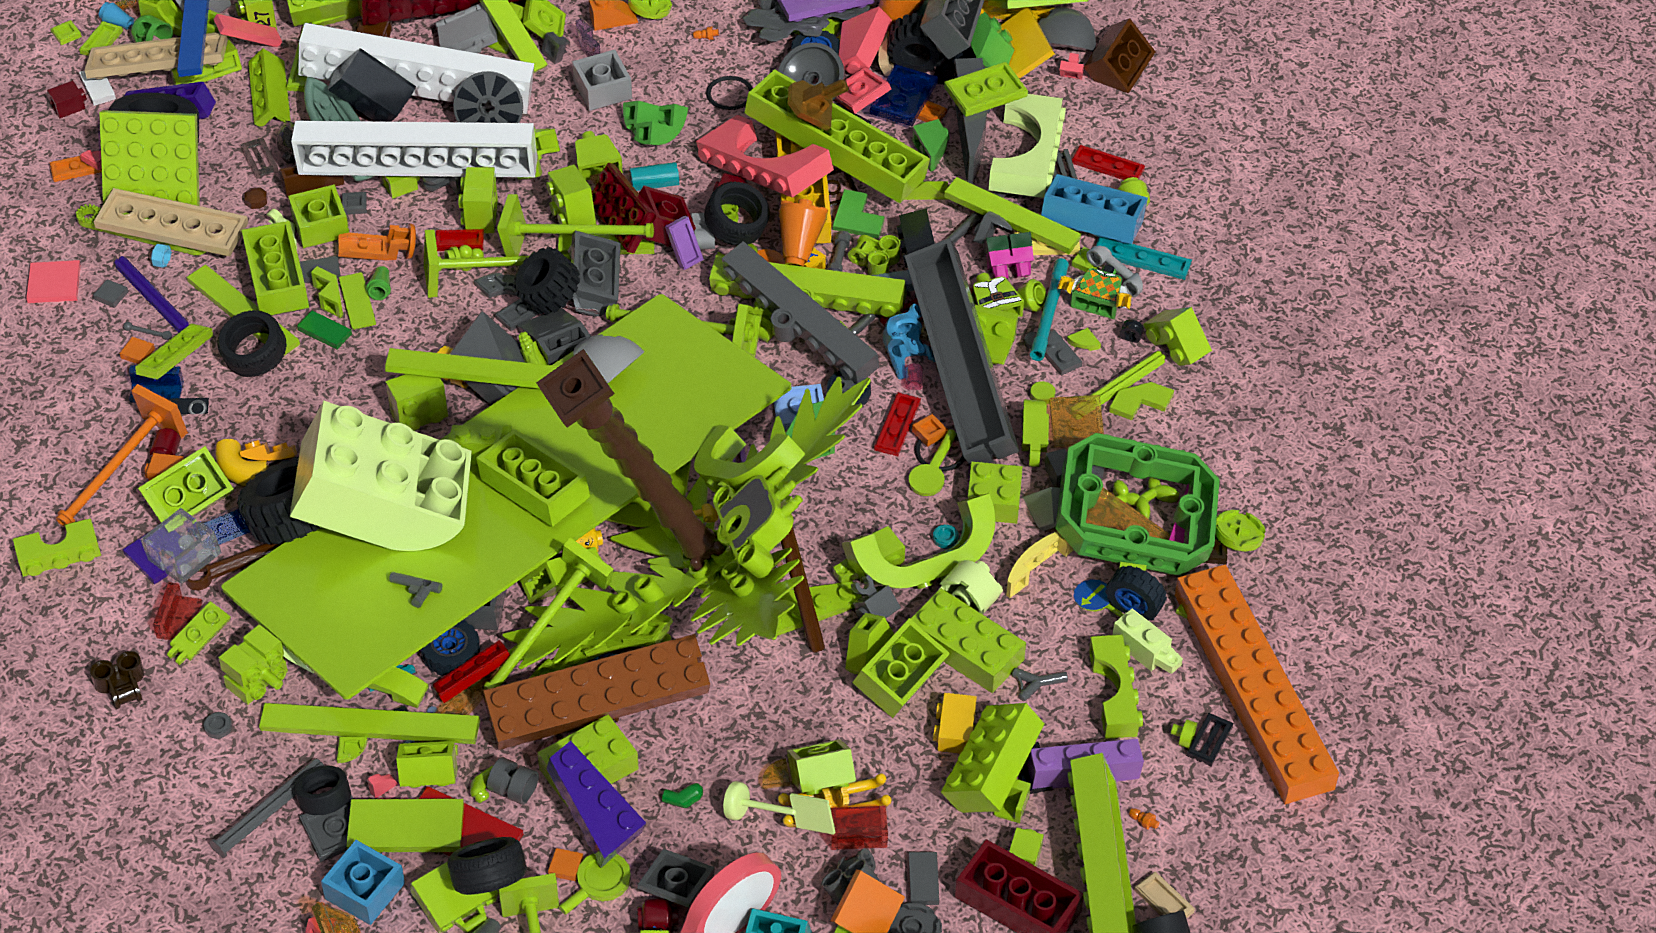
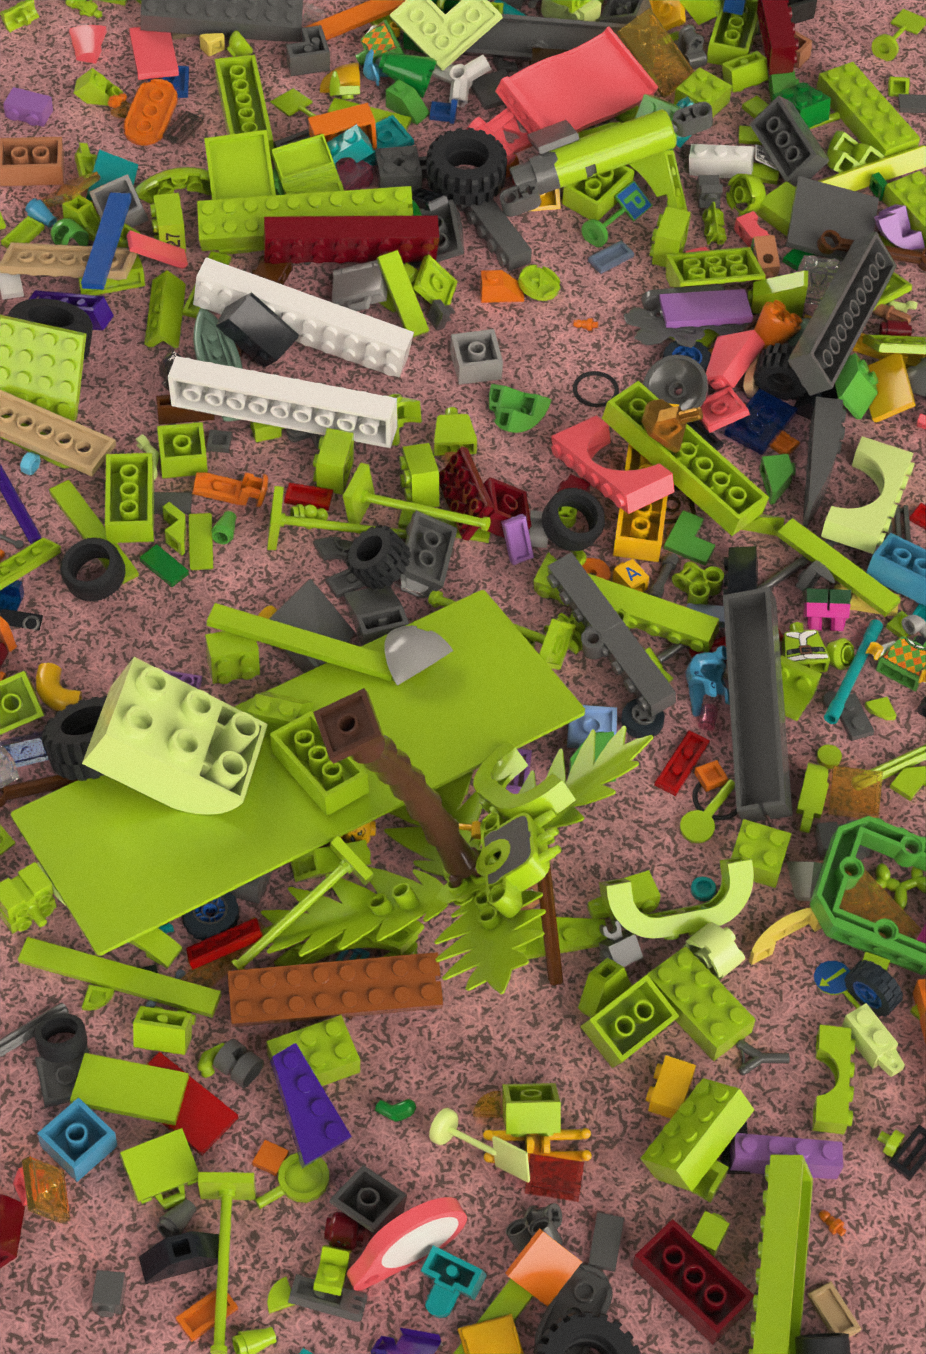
camera: 10 degrees right, 5 degrees up
(256, 198) = (129, 420): reddish brown tile -> none
(258, 451) = (78, 680): light orange slope -> none
(265, 170) = (144, 393): clear smoke tile -> none
(380, 784) = (114, 1042): coral tile -> none
(417, 586) = (188, 852): dark grey hose -> none
(484, 87) = (359, 349): dark grey piece -> none
(487, 865) = (191, 1153): black tyre -> none
(530, 350) = (349, 627): lime piece -> none
(585, 36) = (471, 312): clear purple slope -> none
(654, 176) = (505, 464): teal brick -> none
(800, 229) = (628, 549): orange cone -> none
(985, 89) = (839, 434): lime tile -> none

